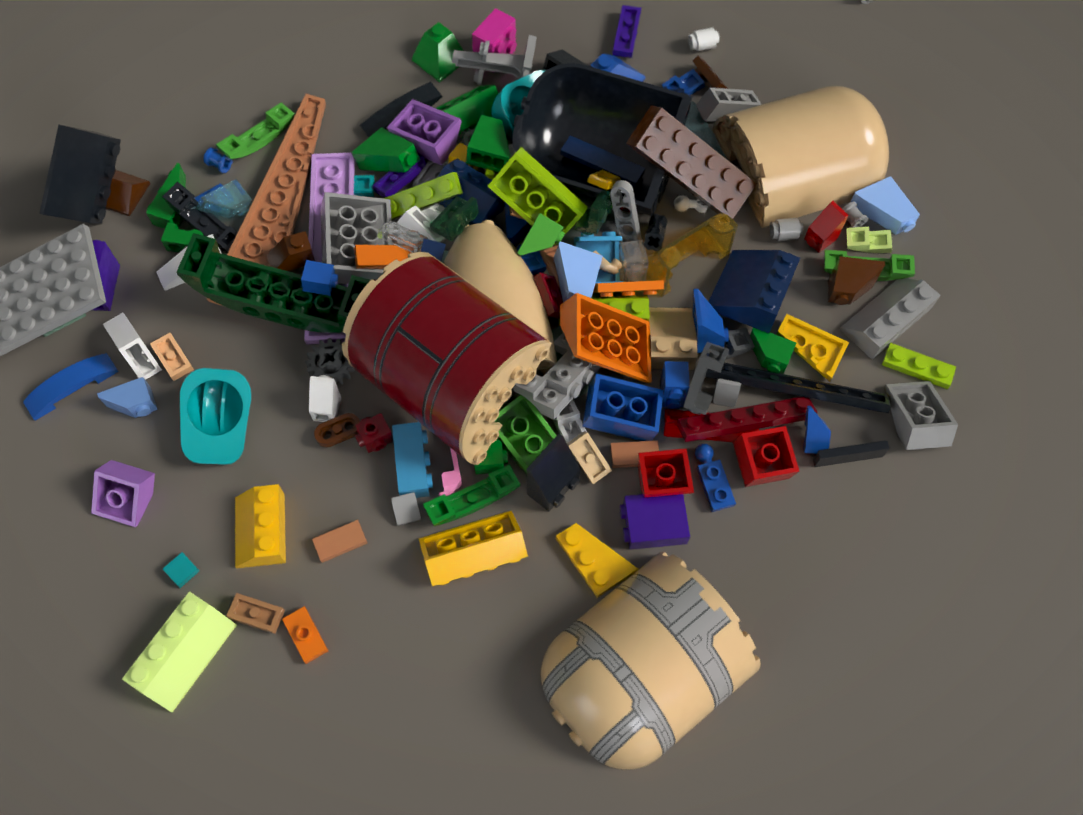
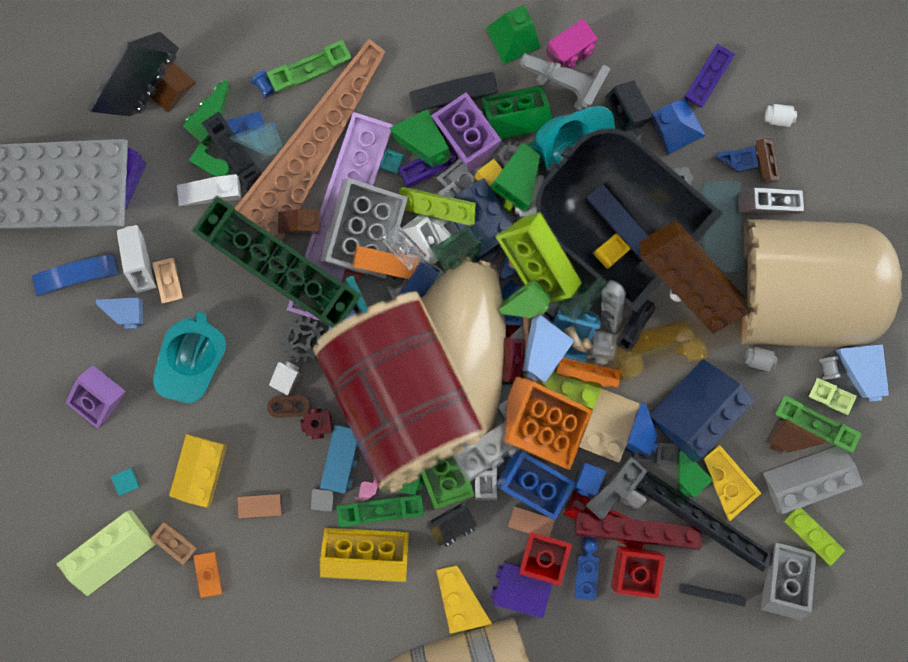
camera: 15 degrees right, 20 degrees up
(319, 278) = (315, 269): blue brick -> none
(589, 457) = (489, 515): tan plate -> none
(816, 434) = (692, 566): blue slope -> none
(826, 227) = (794, 375): red slope -> none

